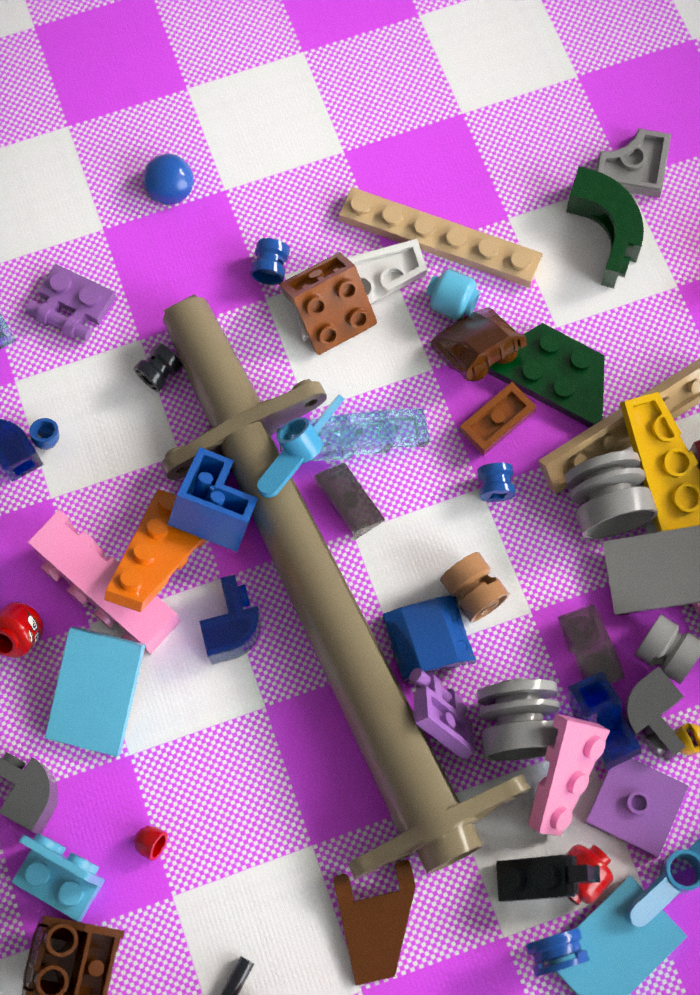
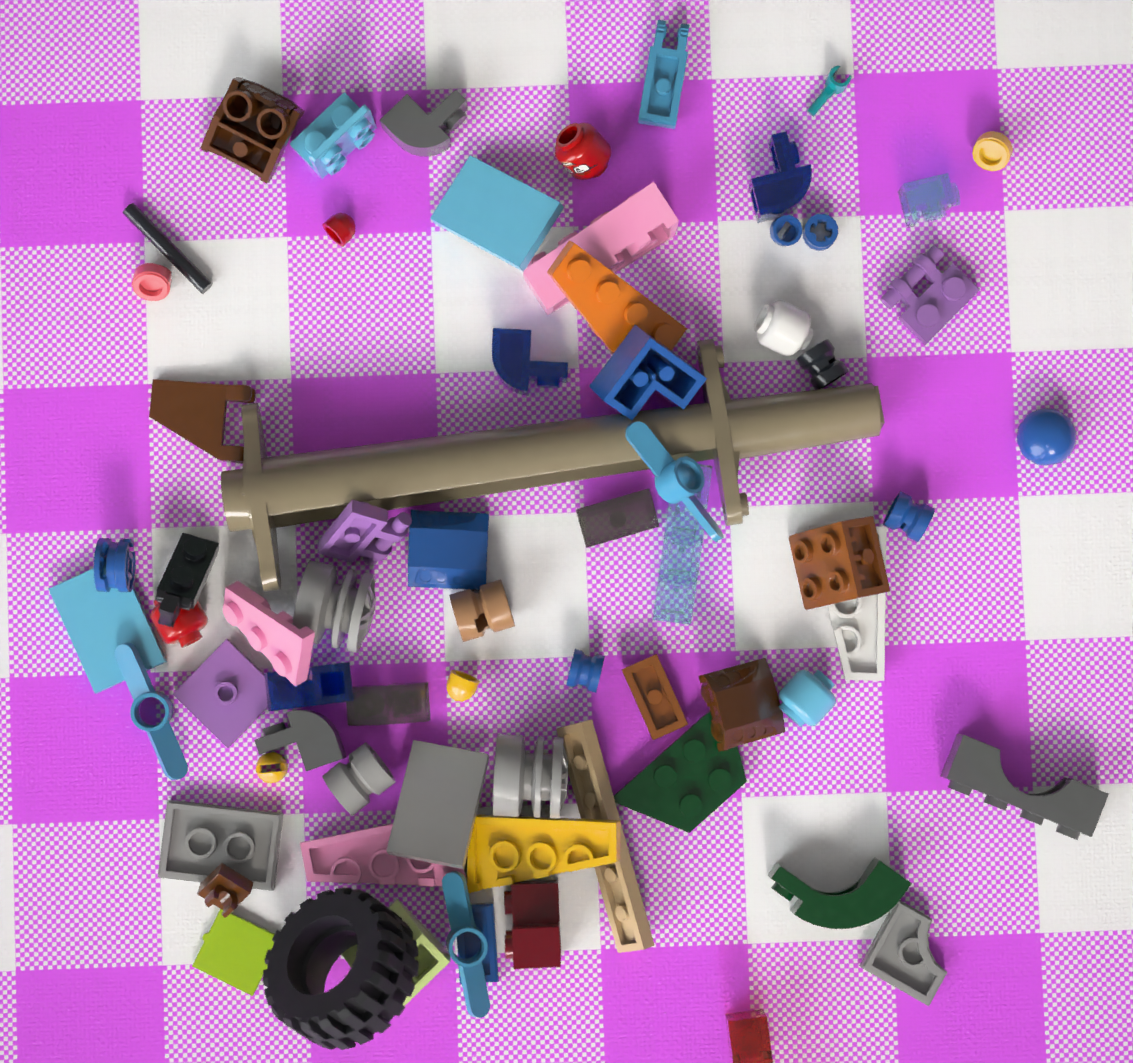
camera: 105 degrees right, 15 degrees up
(29, 401) = (830, 226): none -> blue bush
(134, 408) = (783, 328): none -> white head
(441, 237) = (884, 709): tan plate -> none
(463, 147) = (1068, 804): none -> dark grey arch
(548, 587) = (461, 685): none -> yellow hinge

